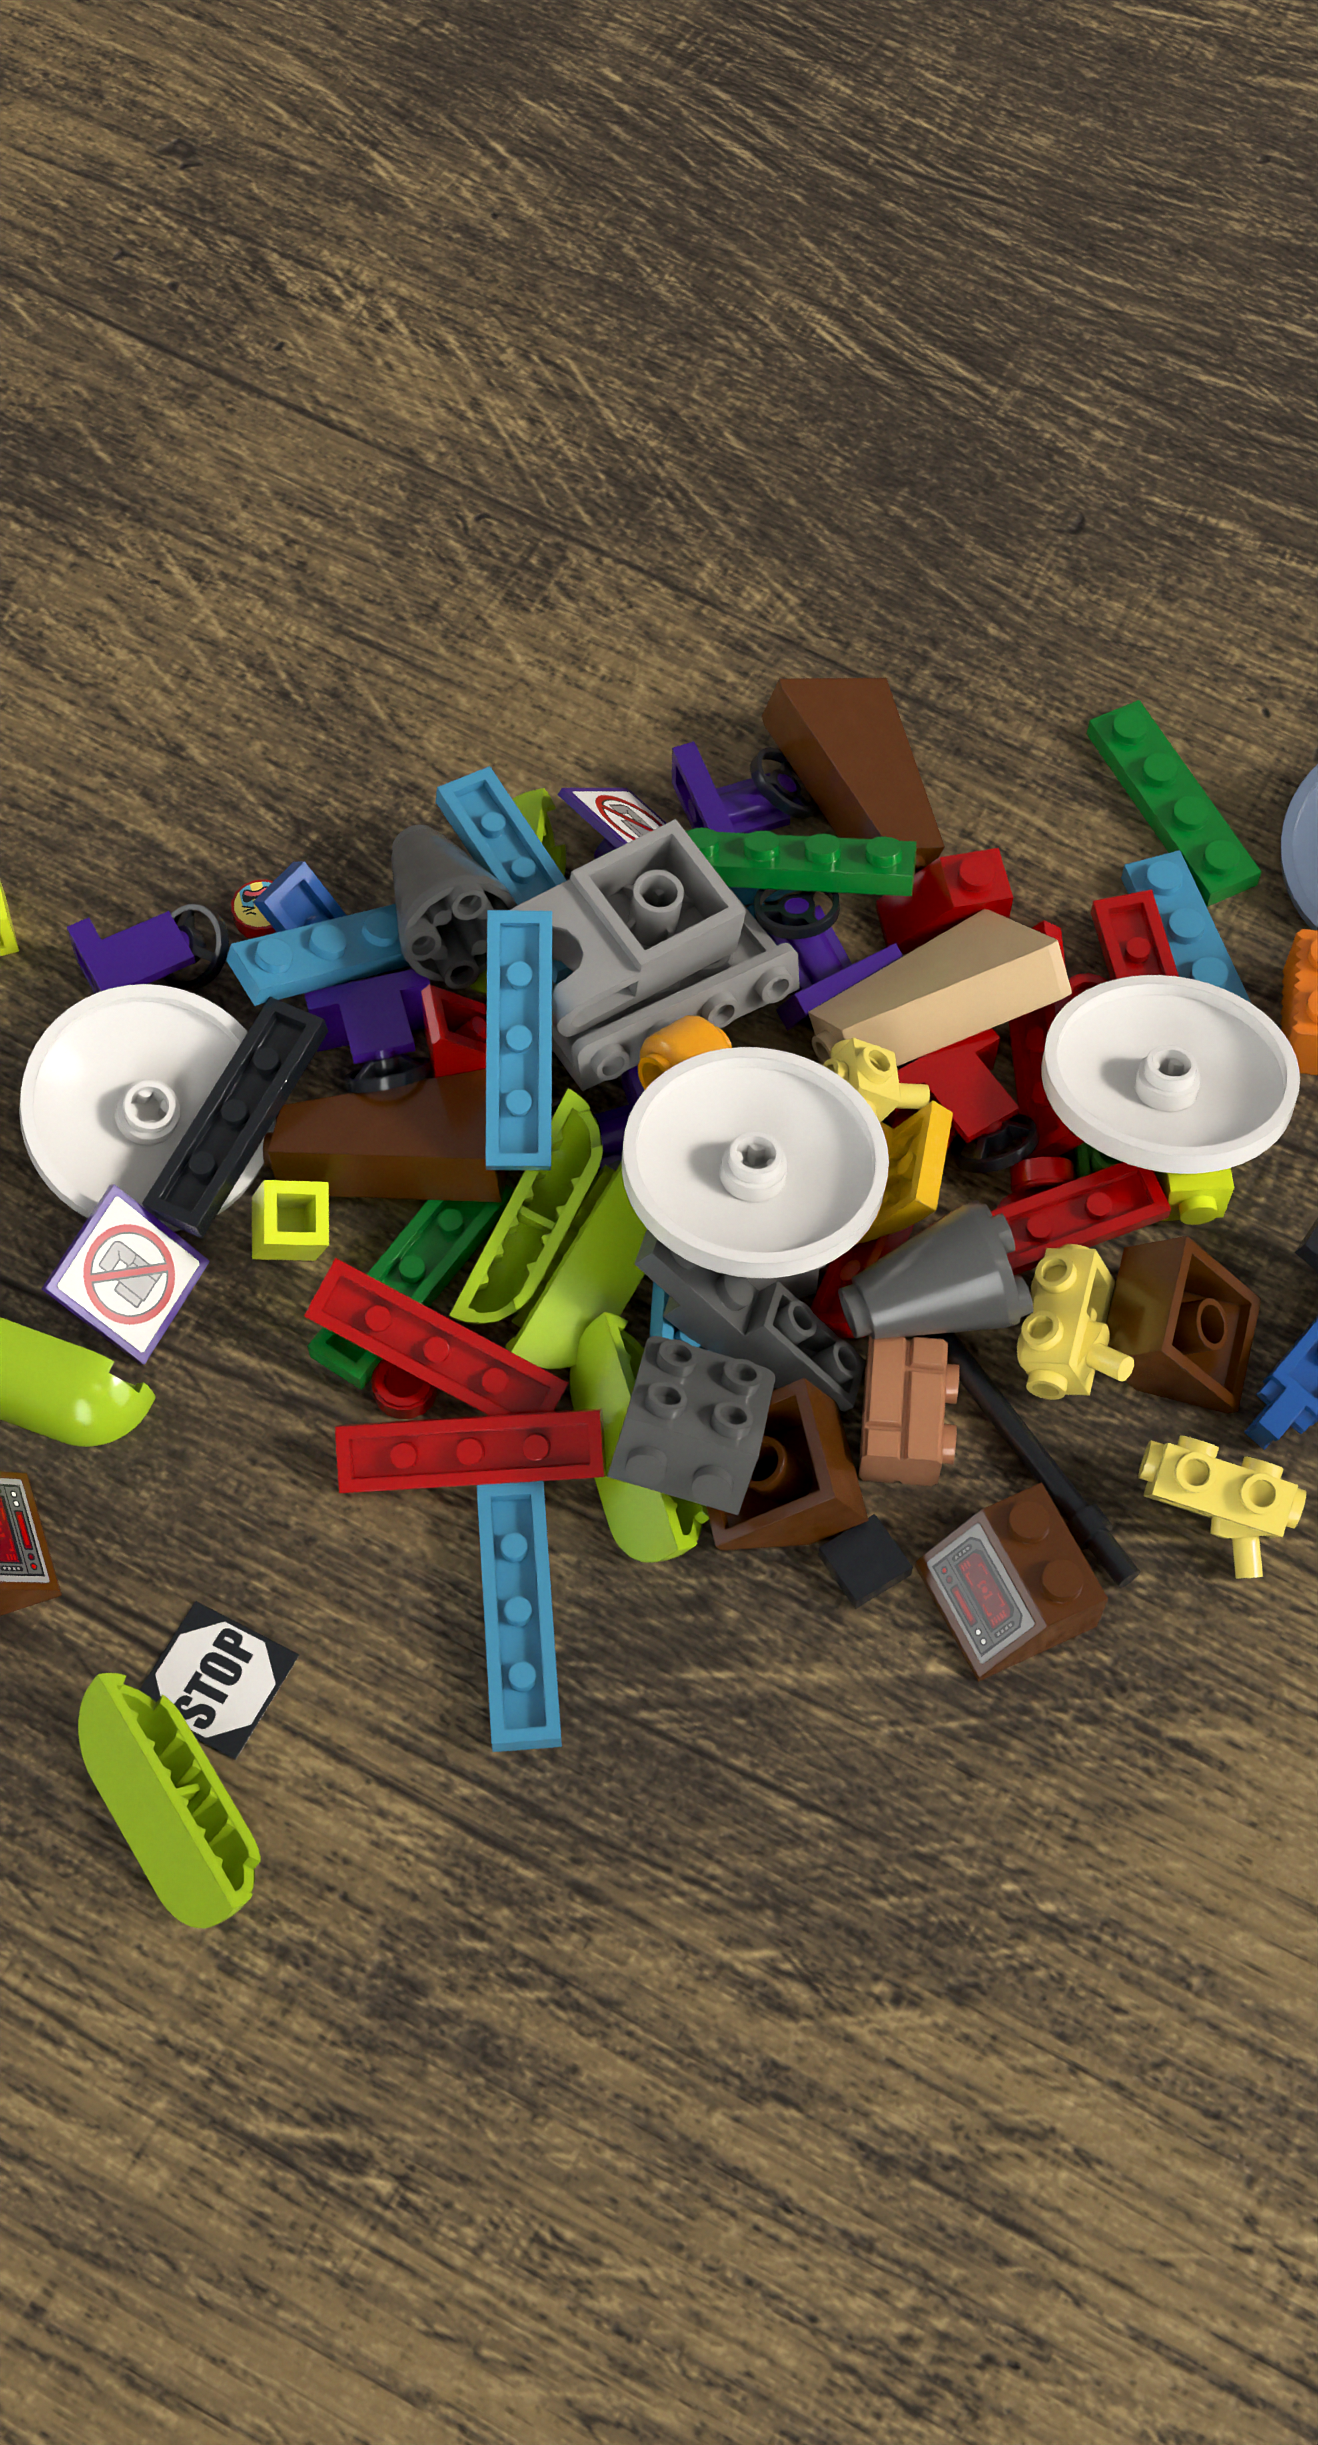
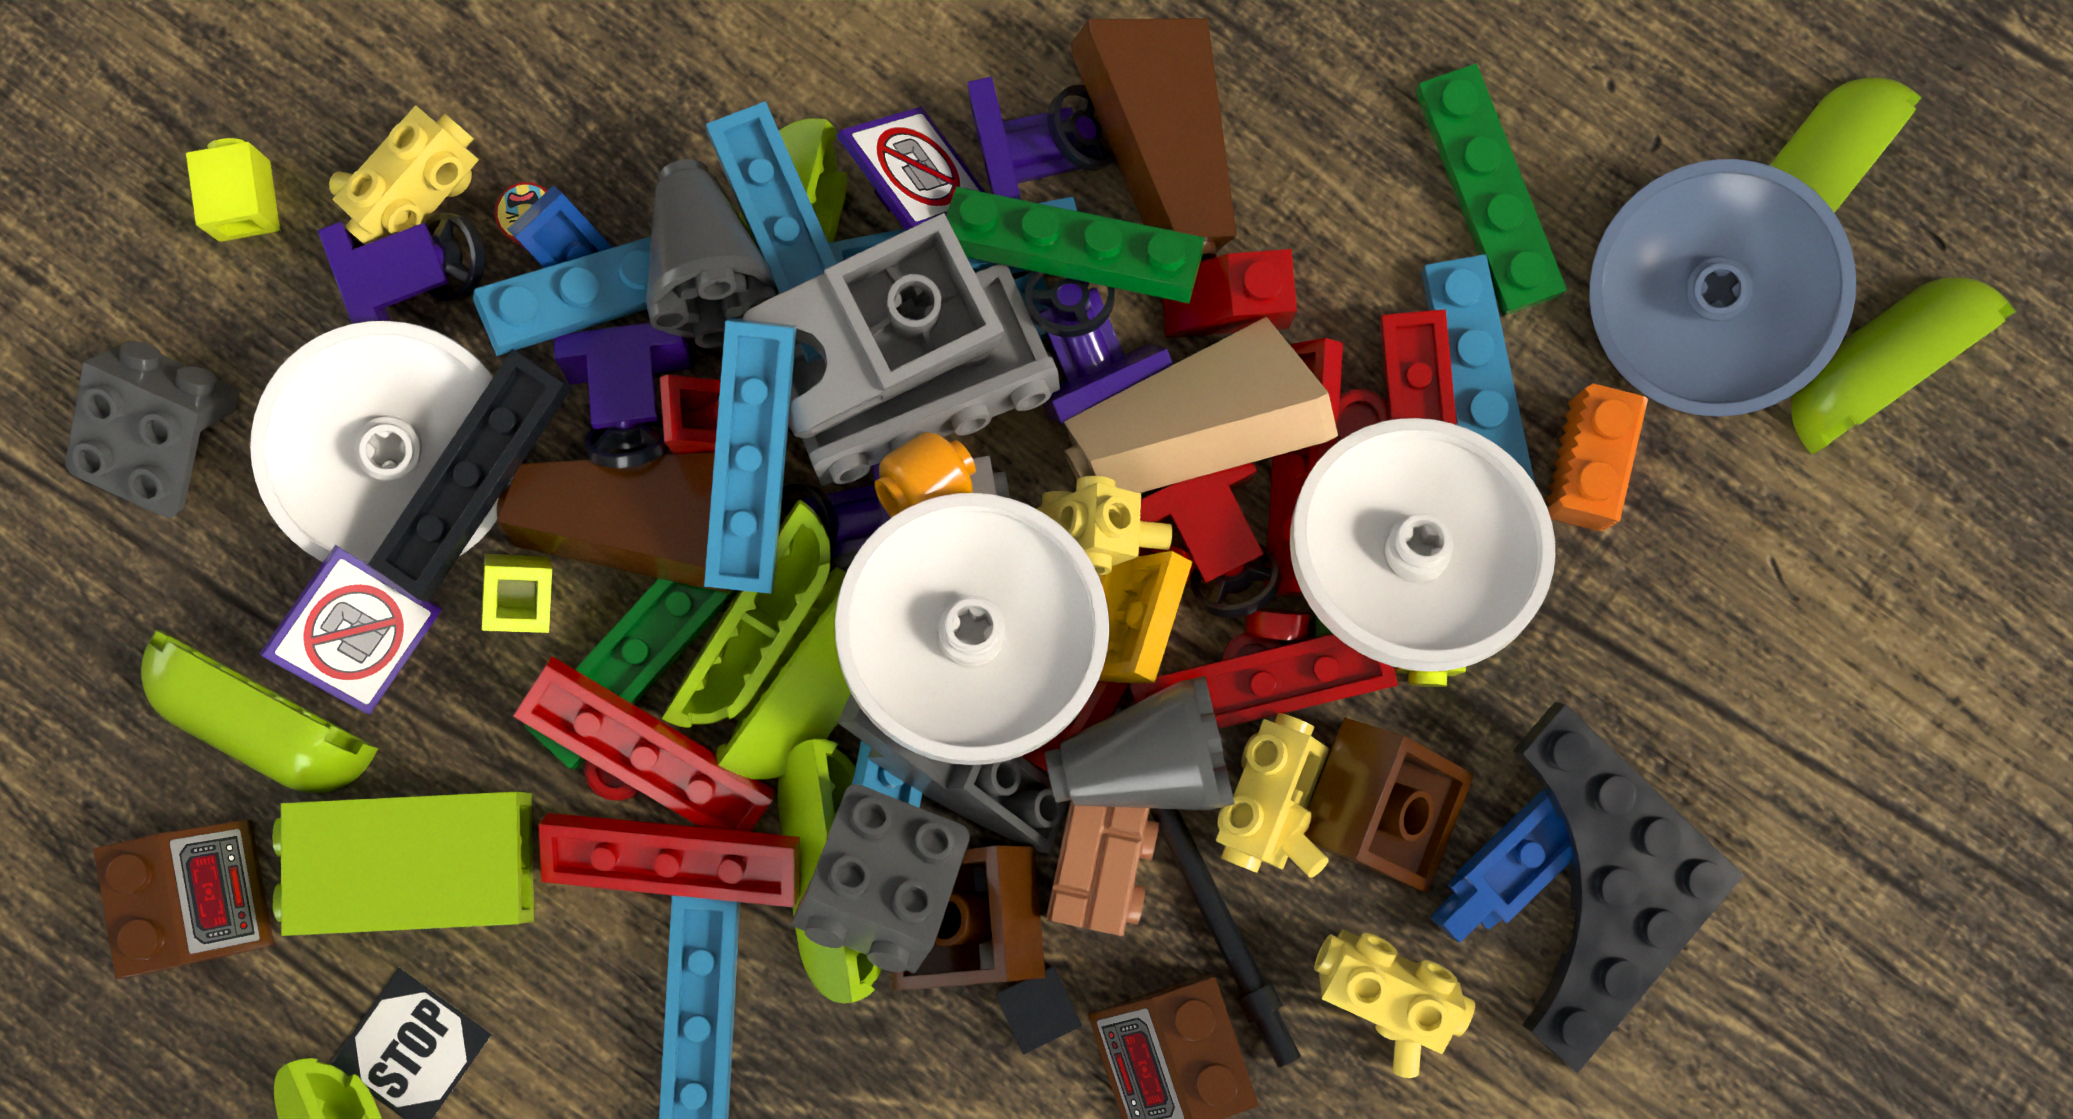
camera: 10 degrees right, 20 degrees up
(147, 878) = (405, 177): none -> light yellow brick
(196, 1488) = (404, 863): none -> lime brick

